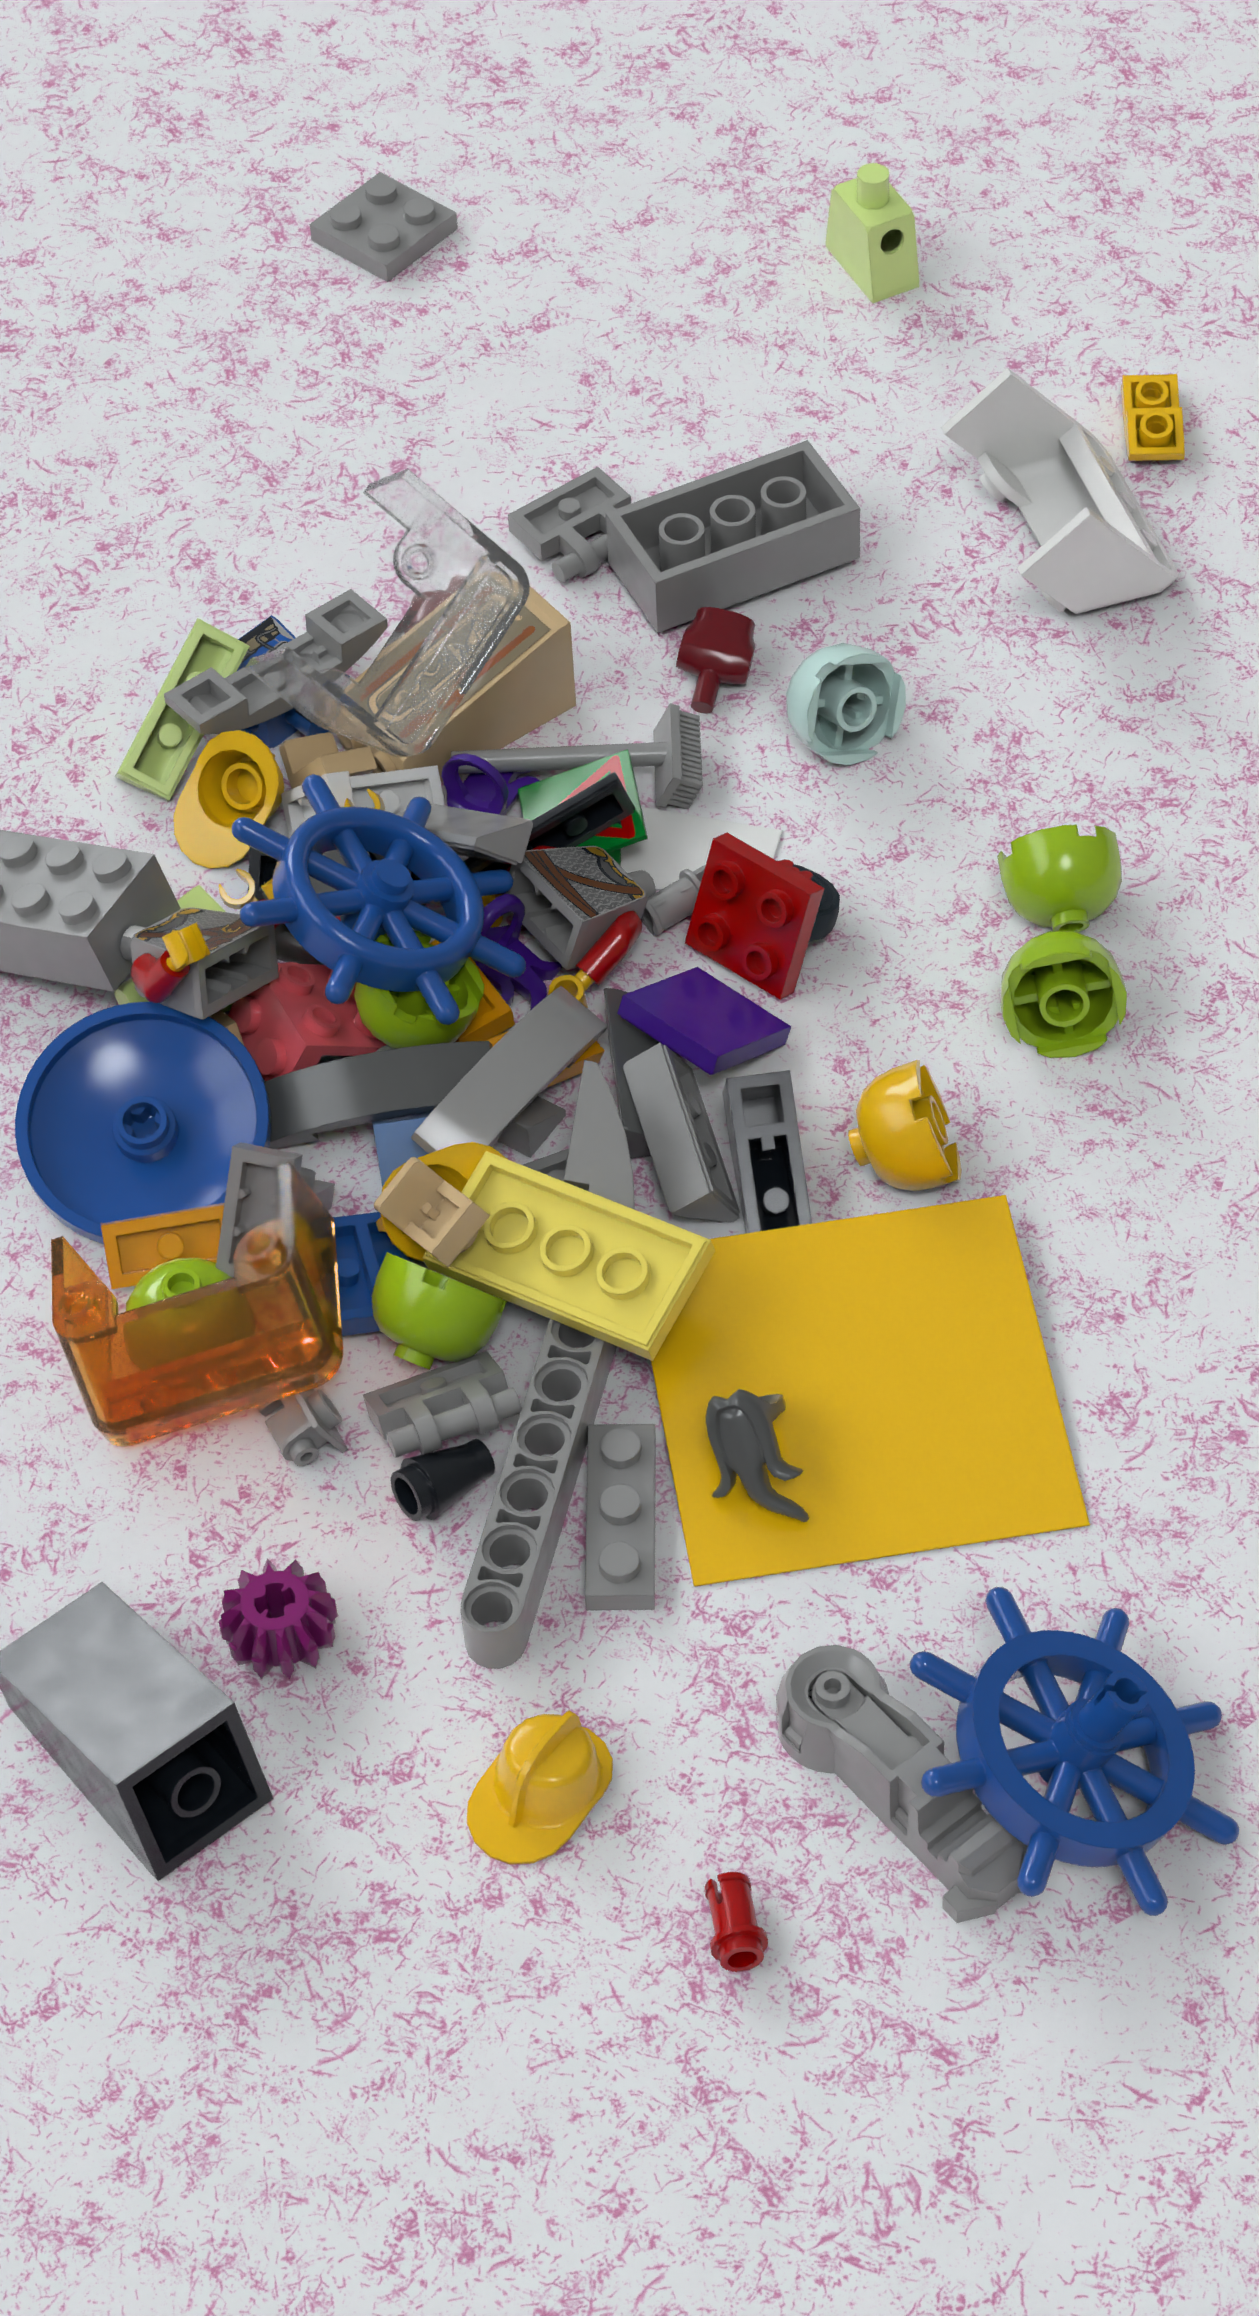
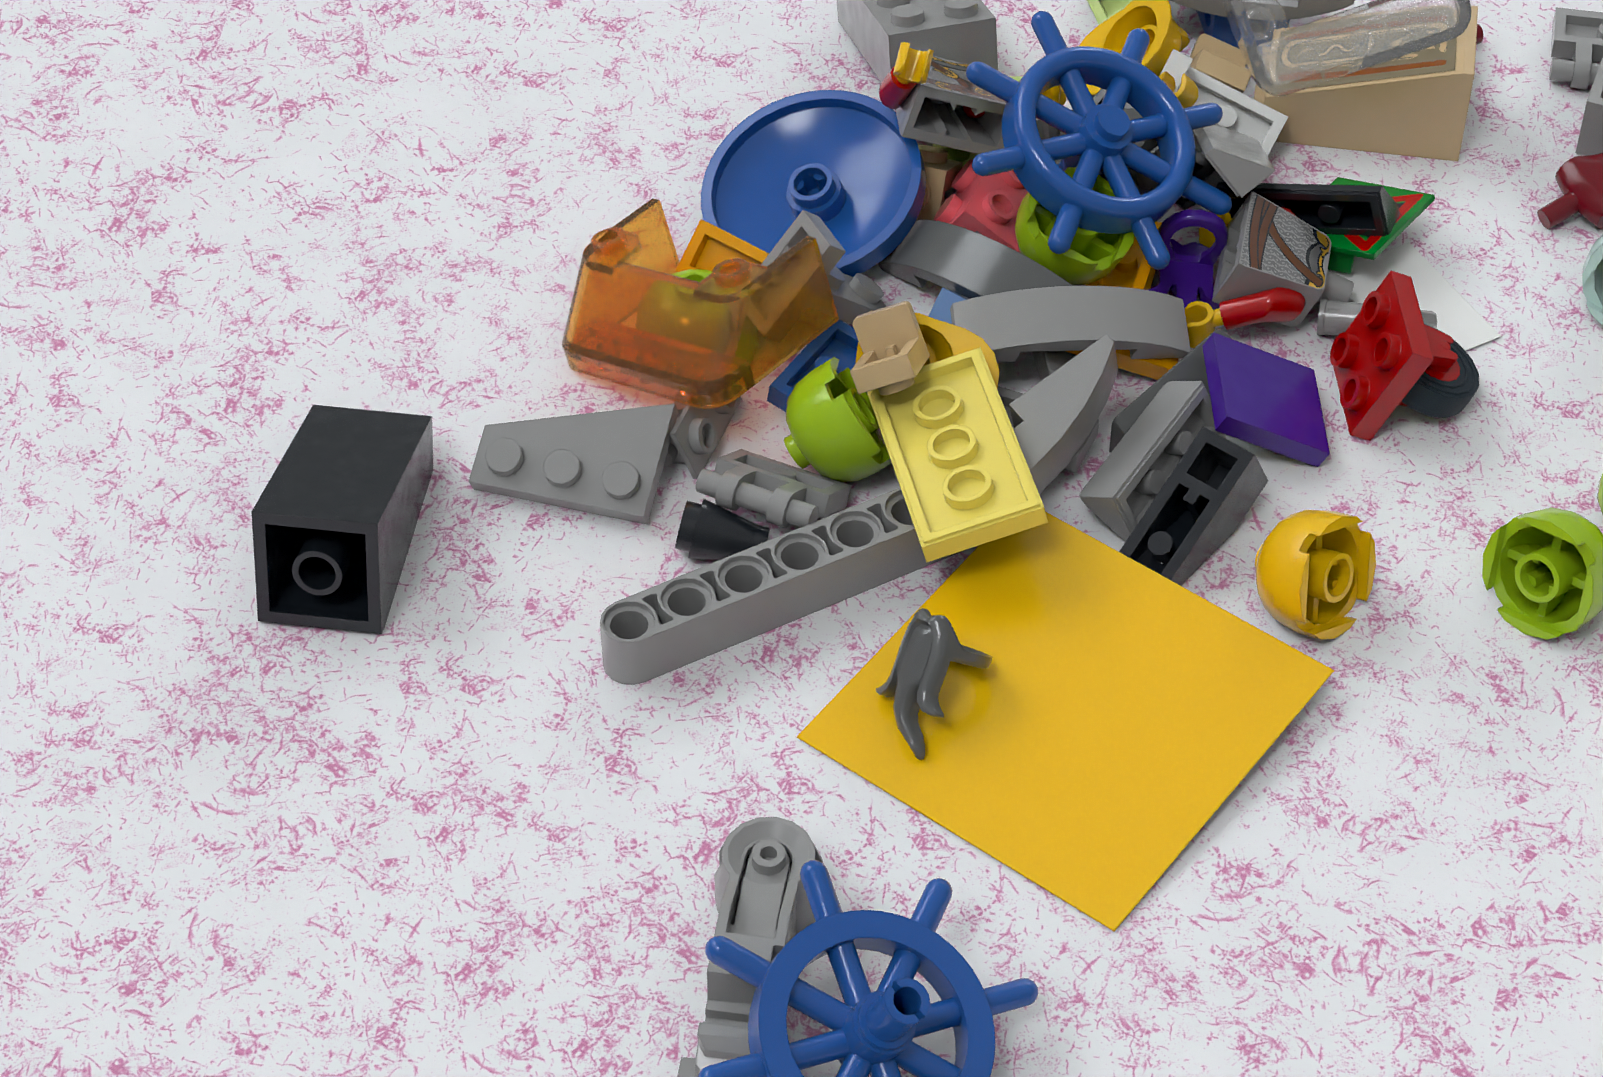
camera: 45 degrees right, 5 degrees down
(263, 1507) = (580, 461): none -> light grey wing
(278, 1618) = (511, 529): magenta gear -> none
(482, 792) = (1319, 163): dark purple piece -> none
(538, 1789) = (536, 764): yellow piece -> none
(620, 1517) = (803, 654): light grey plate -> none
(673, 753) = (1472, 232): light grey piece -> none
(737, 1937) = (519, 958): red pin -> none

